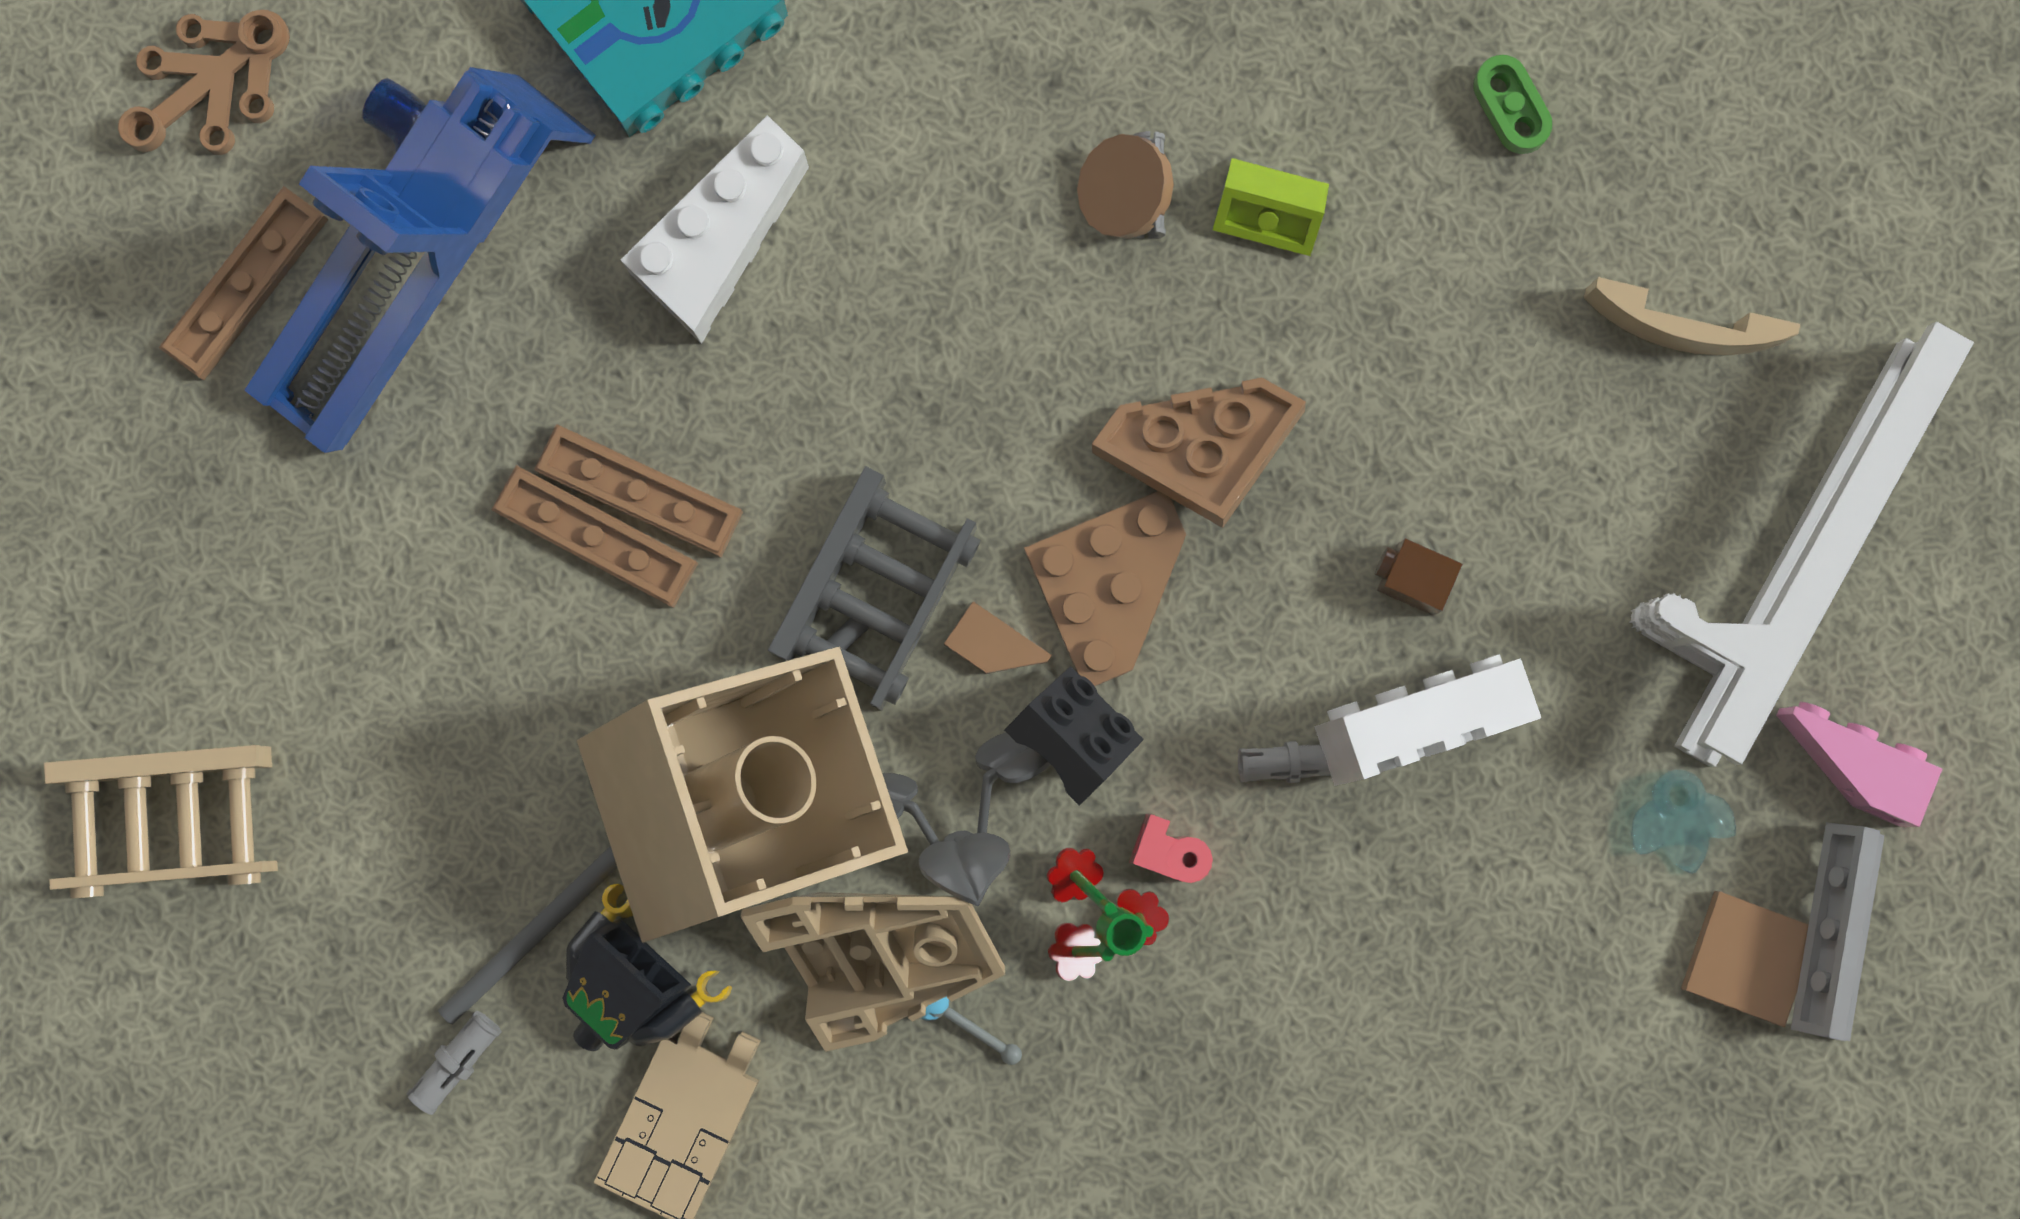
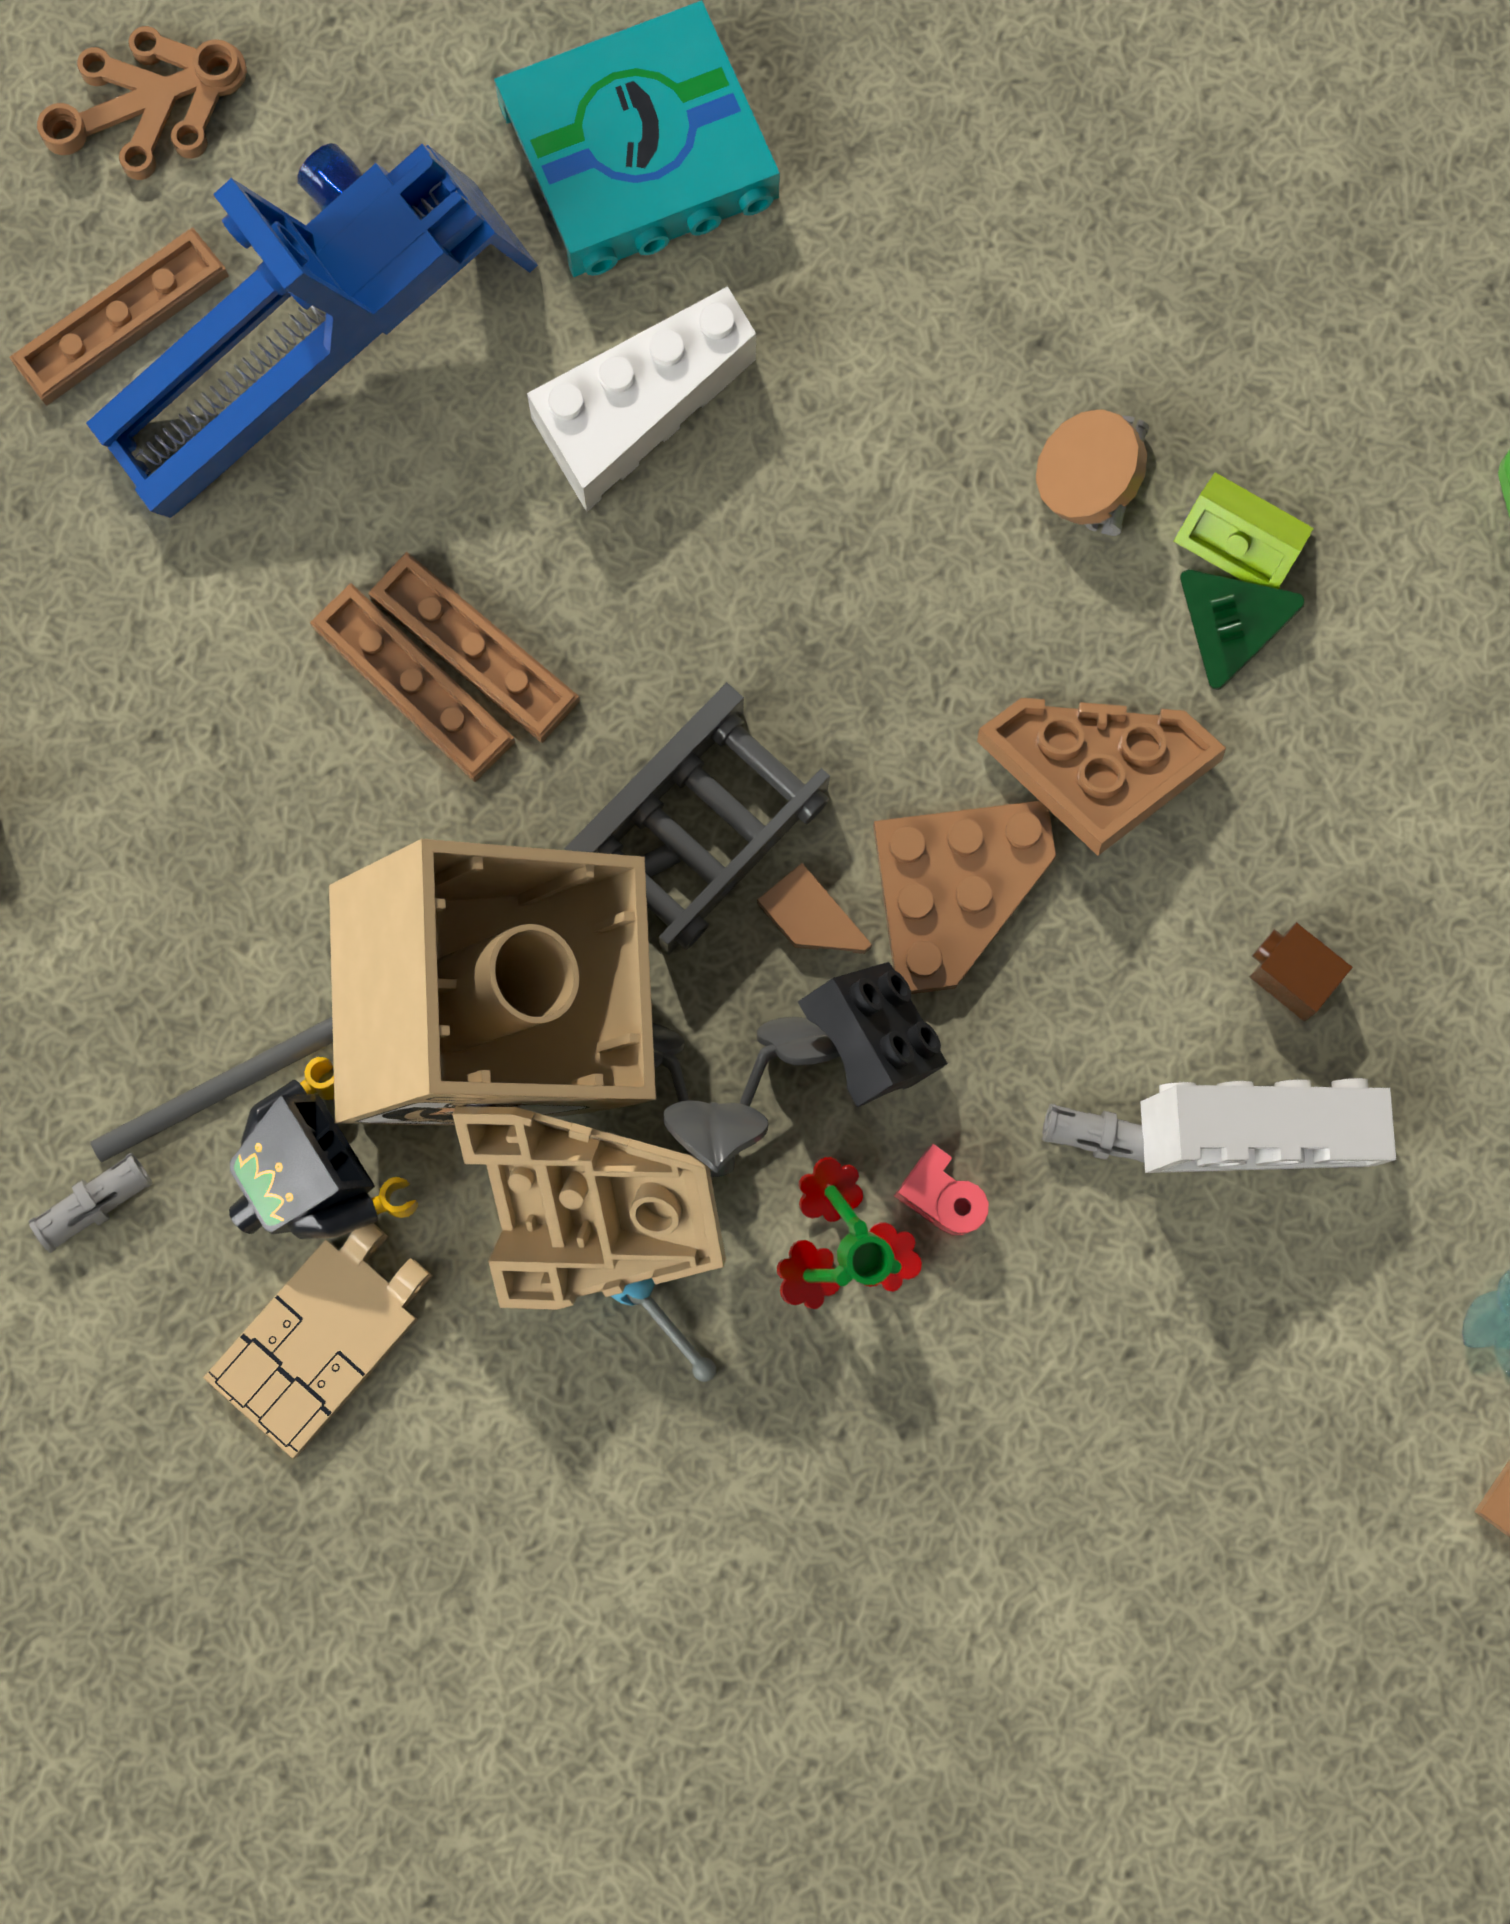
camera: 15 degrees right, 5 degrees down
(1282, 285) = (1234, 620): none -> dark green piece

